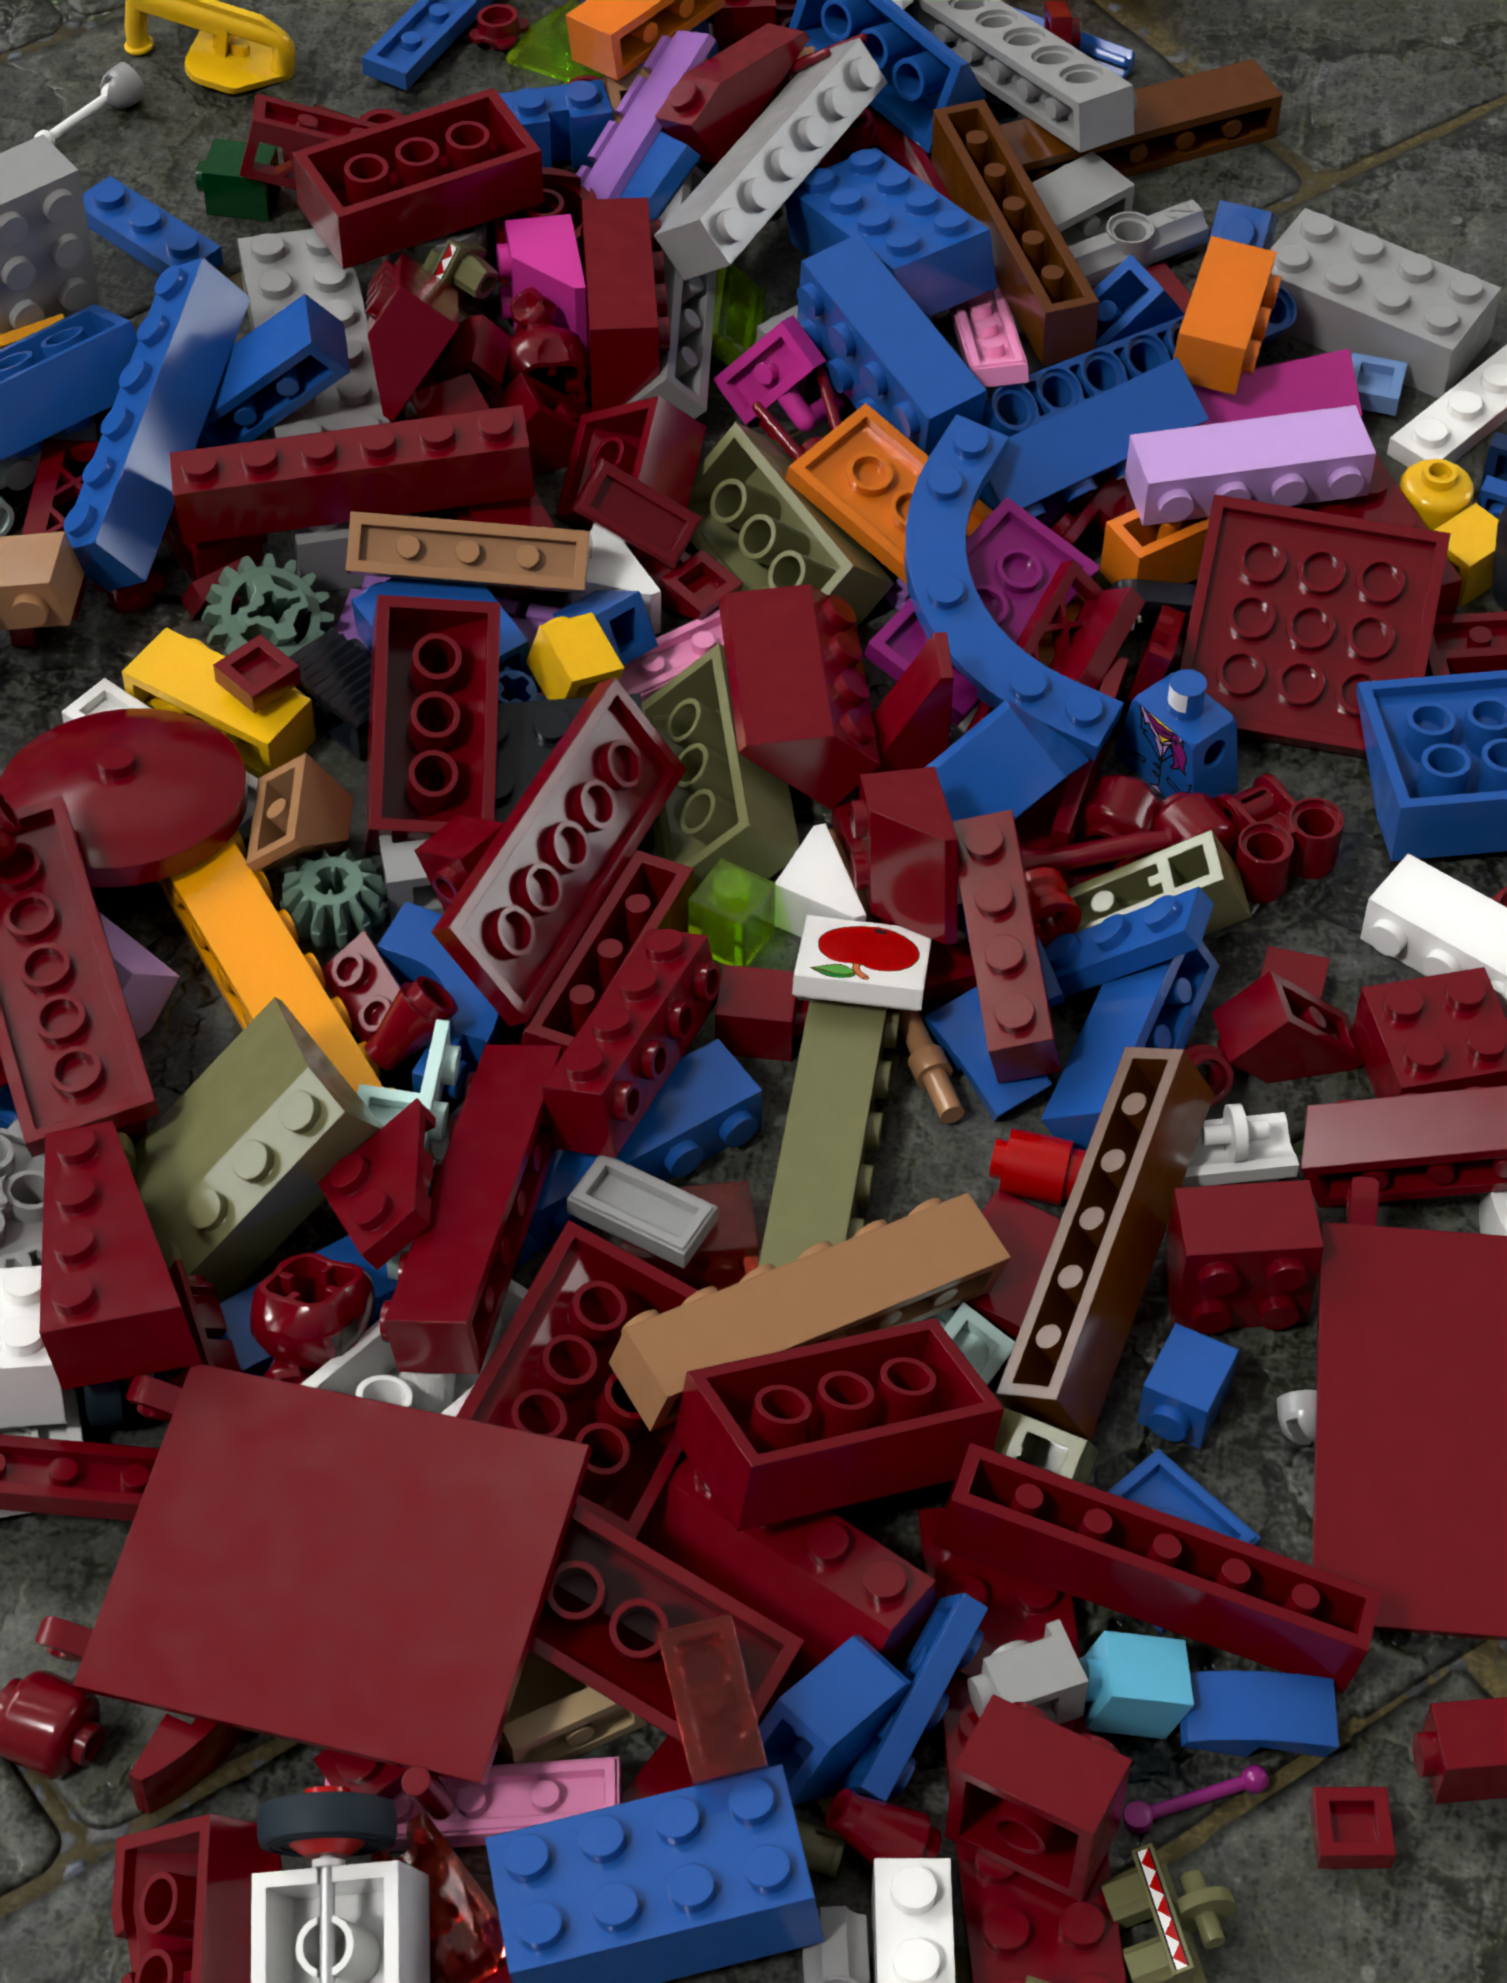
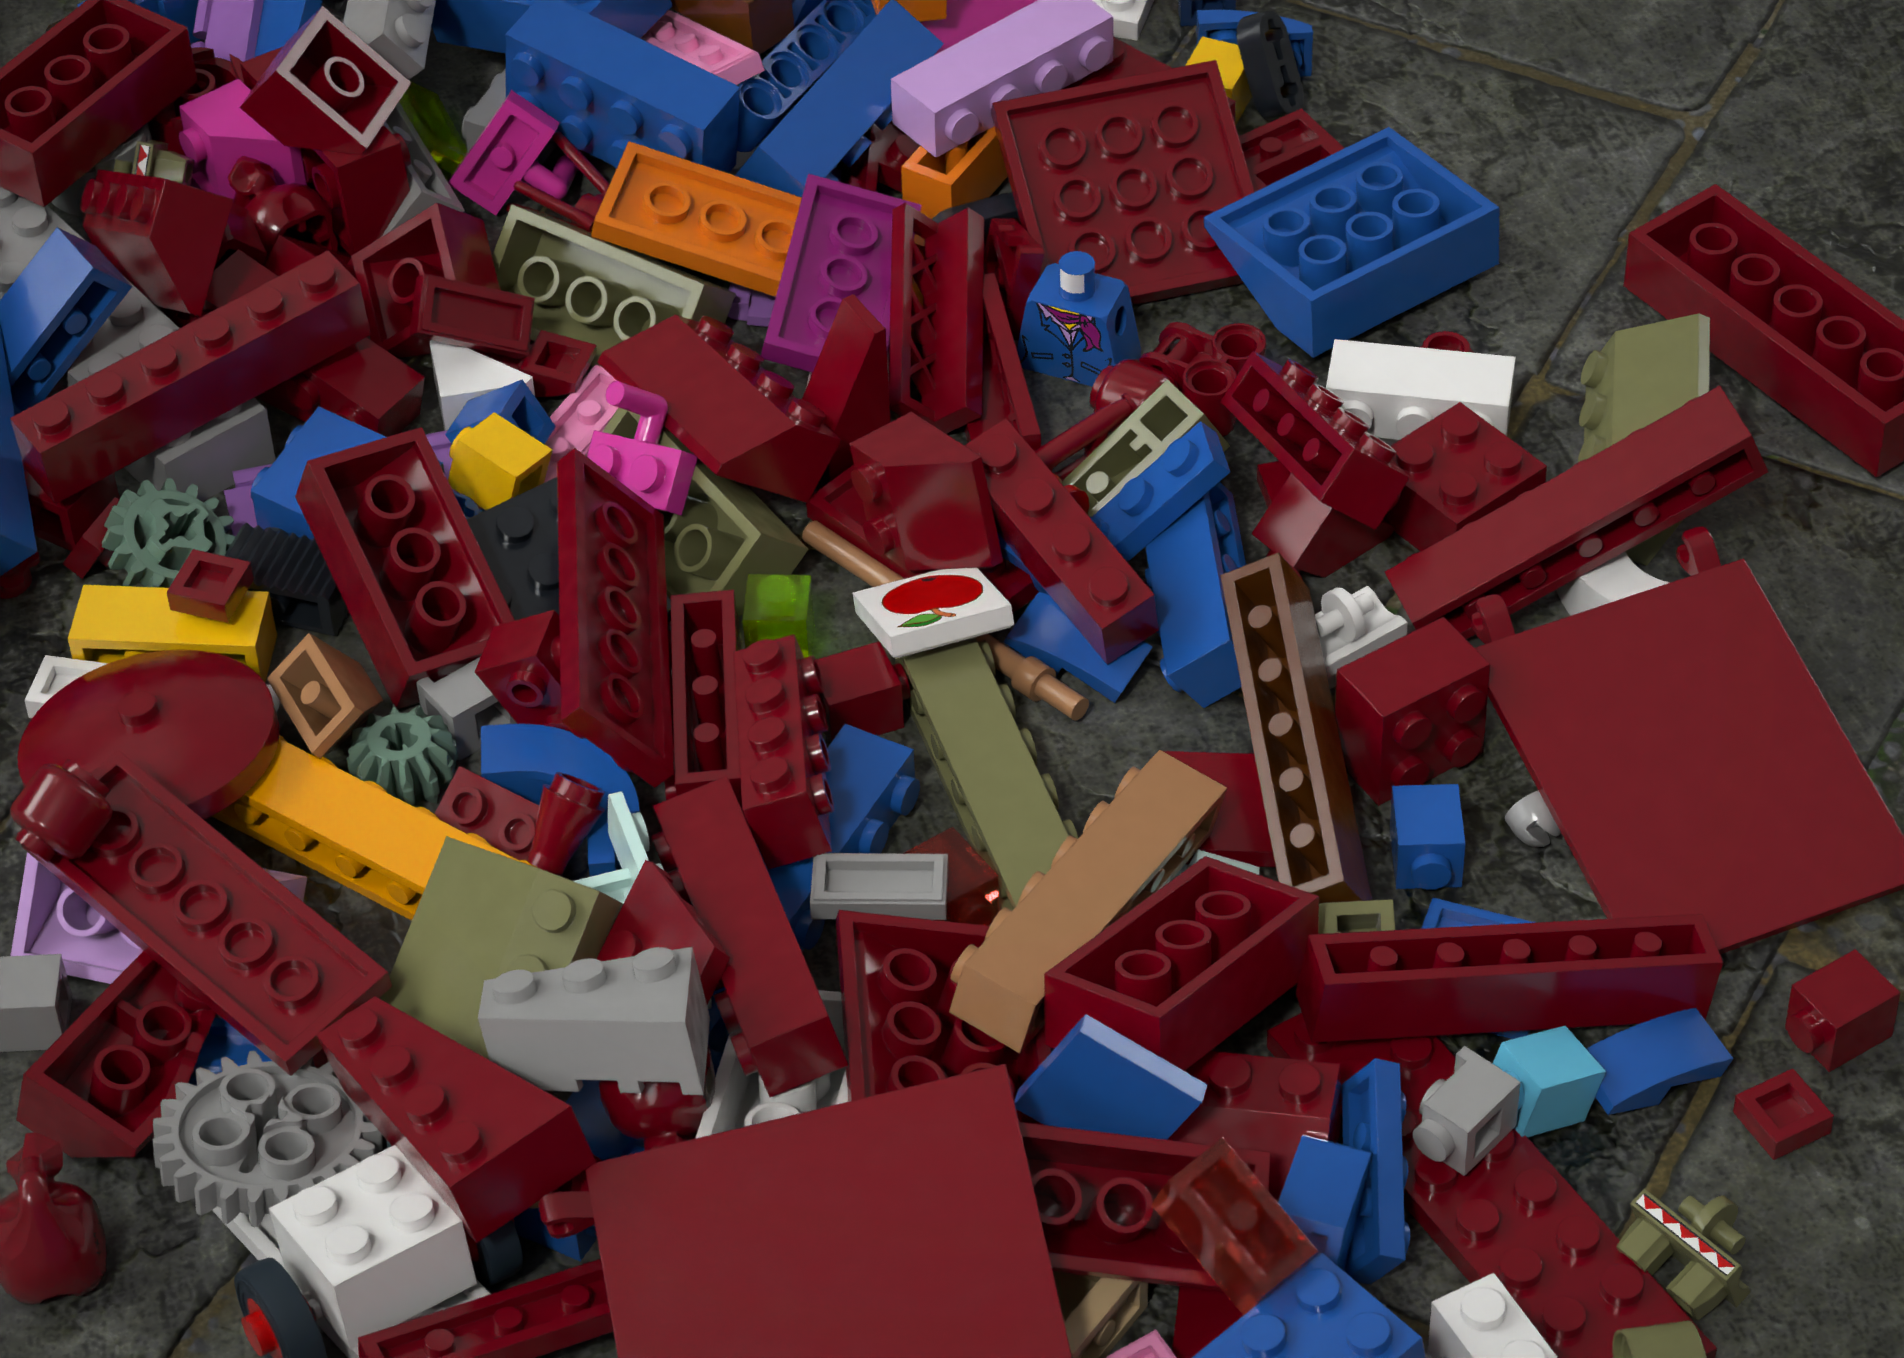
camera: 25 degrees left, 5 degrees down
(271, 1239) = (601, 1022): none -> light grey wedge
(468, 552) = (343, 404): medium nougat fence -> none
(620, 253) = (325, 89): none -> dark red slope
(688, 711) = (648, 469): none -> dark pink plate
(690, 1511) = (1109, 1086): none -> blue tile
(815, 885) = (840, 567): white slope -> none
(882, 1828) = (1413, 1283): dark red cone -> none
(950, 603) = (819, 281): blue plate -> none
(1004, 764) = (960, 388): blue slope -> none
(1036, 1166) = (1186, 717): red brick -> none
(1037, 1796) = (1541, 1188): dark red brick -> none
(1116, 808) = (1062, 400): dark red head -> none
(1139, 1815) = (1605, 1186): magenta hinge -> none
(1315, 948) = (1316, 438): none -> dark red brick
(1437, 490) = (1163, 36): yellow head -> none

